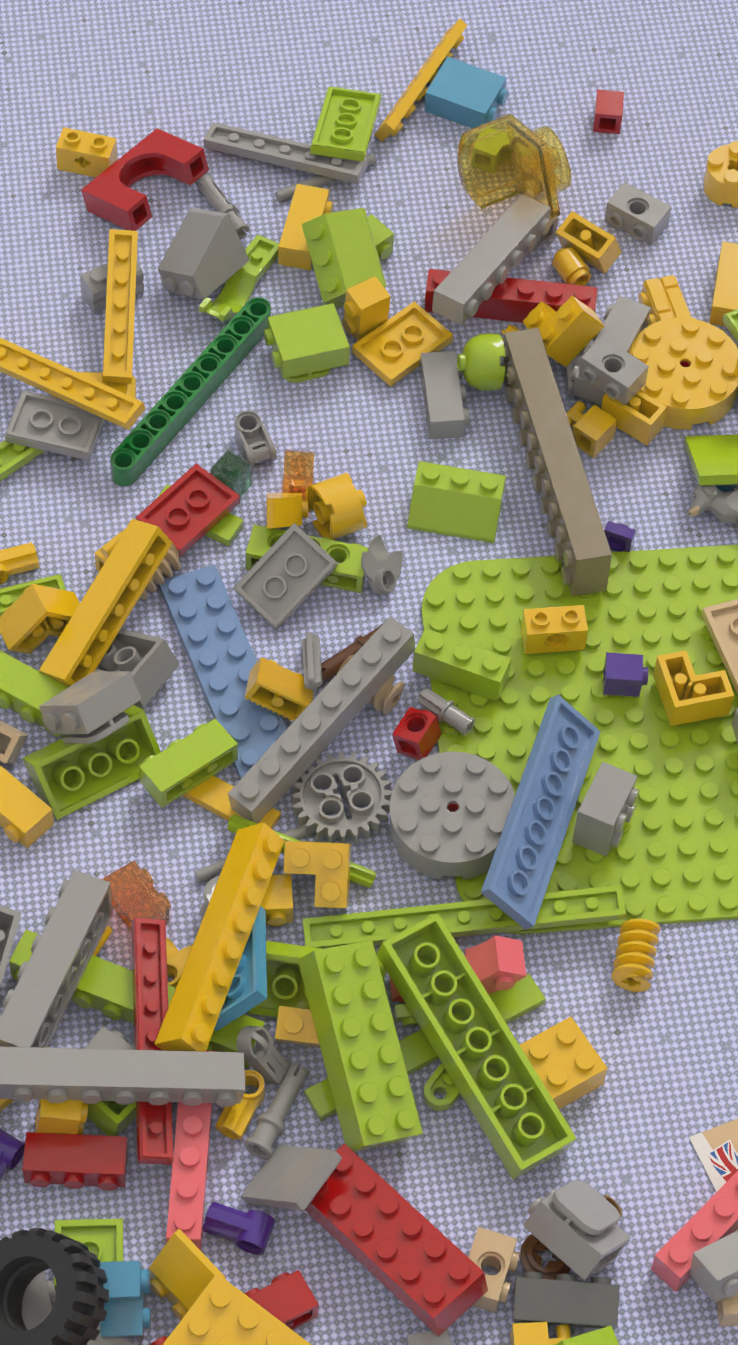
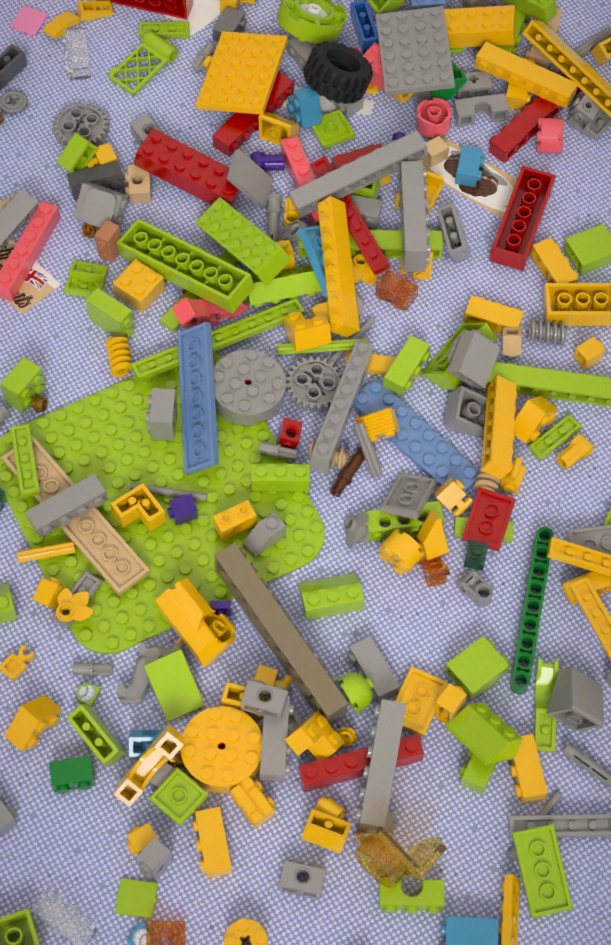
camera: 160 degrees right, 5 degrees up
(222, 558) = (451, 494): none -> yellow brick
(511, 595) = (265, 534): none -> light grey slope
(586, 1153) = (106, 241): none -> nougat brick
(629, 1017) = (110, 314): none -> lime brick
(634, 715) = (171, 492): none -> light grey bar
(643, 1122) = (85, 278): none -> lime slope
(664, 513) = (195, 622): none -> yellow brick

